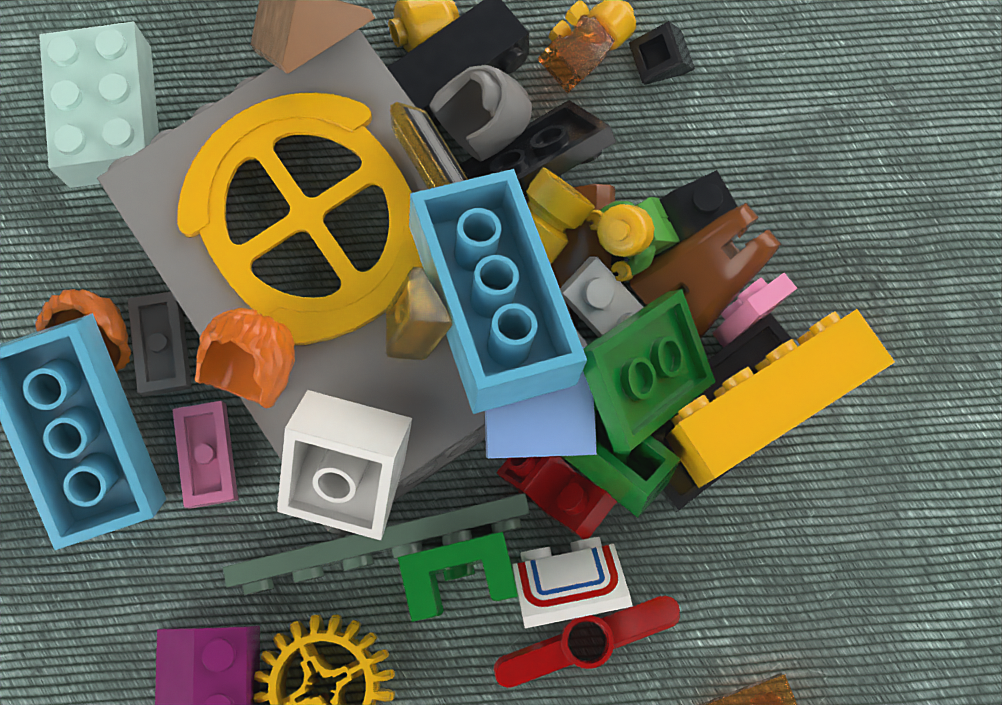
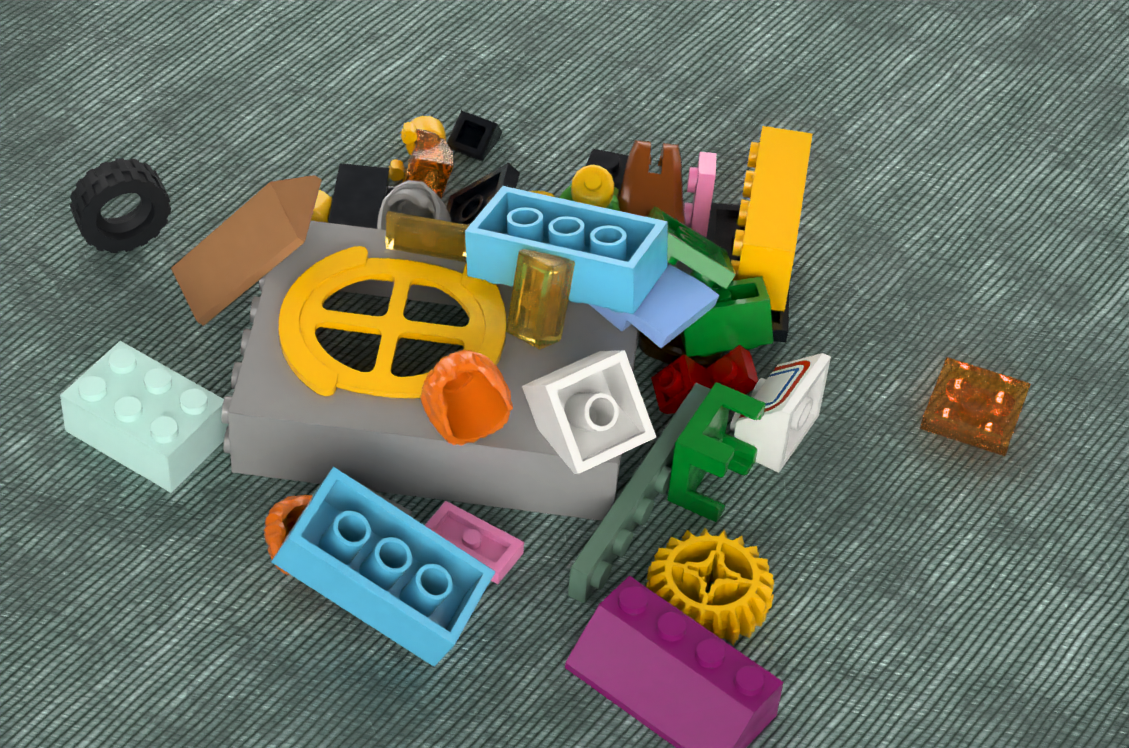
camera: 55 degrees left, 30 degrees down
(618, 629) = (827, 422): red piece -> none

